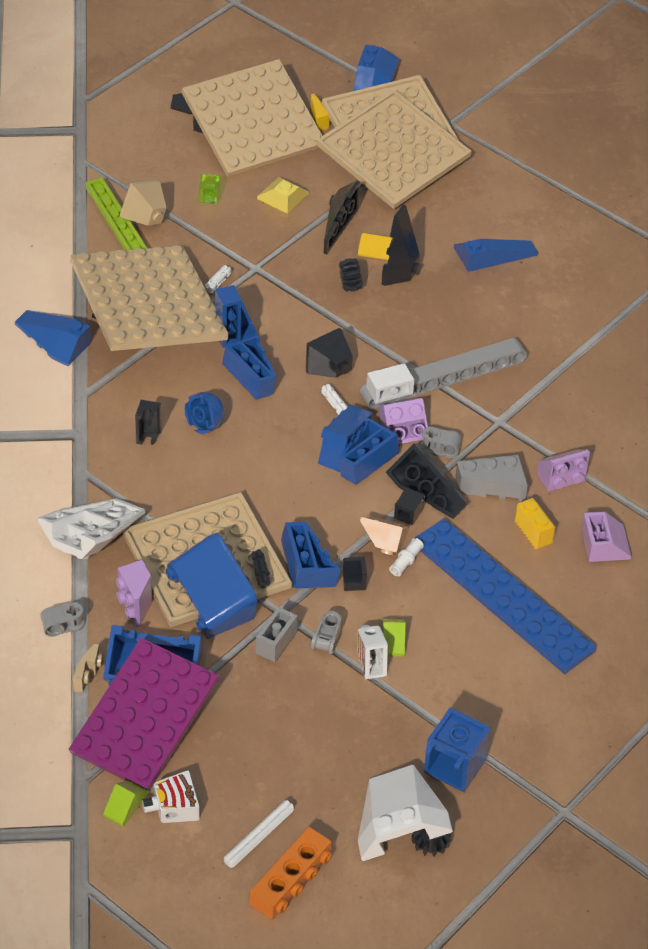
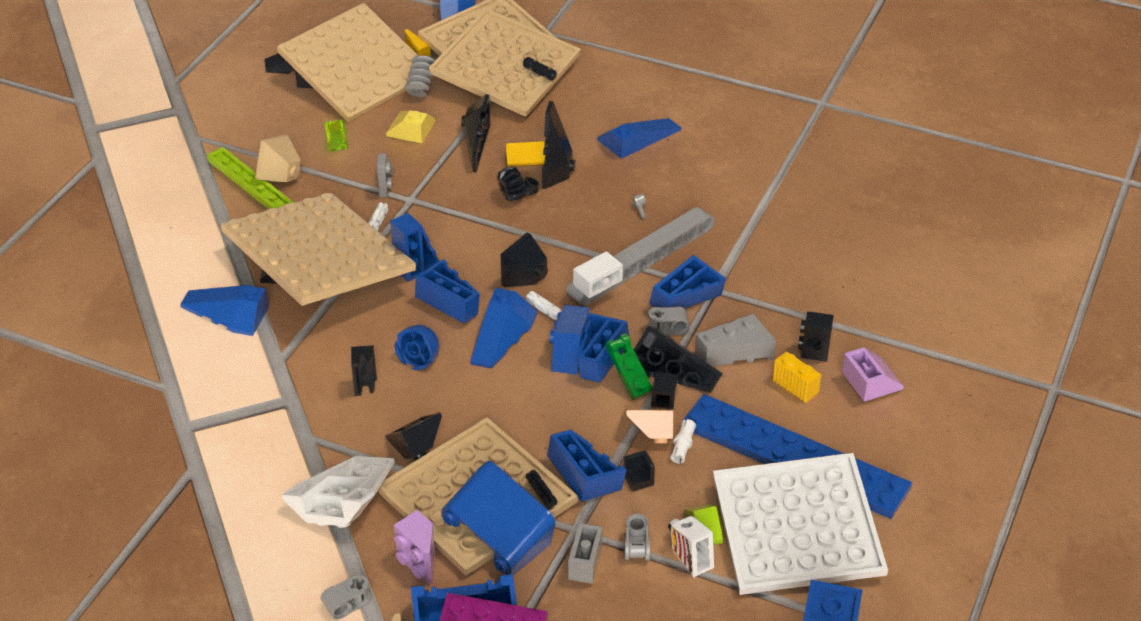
camera: 15 degrees left, 5 degrees down
(172, 494) = (415, 437): none -> black slope
(236, 237) = (385, 174): none -> light grey plate
(291, 407) = (503, 324): none -> blue wedge
(306, 145) = (419, 76): none -> light grey piece
(369, 280) = (531, 185): none -> black plate
(383, 476) = (628, 366): none -> green plate
(404, 418) = (624, 304): lavender slope -> none
(422, 163) = (540, 68): none -> black axle
(465, 318) = (639, 201): none -> light grey hand
(471, 413) = (688, 285): none -> blue wedge
(474, 656) = (798, 523): none -> white plate
(563, 469) = (788, 321): lavender slope -> none
(568, 490) = (816, 337): none -> black brick

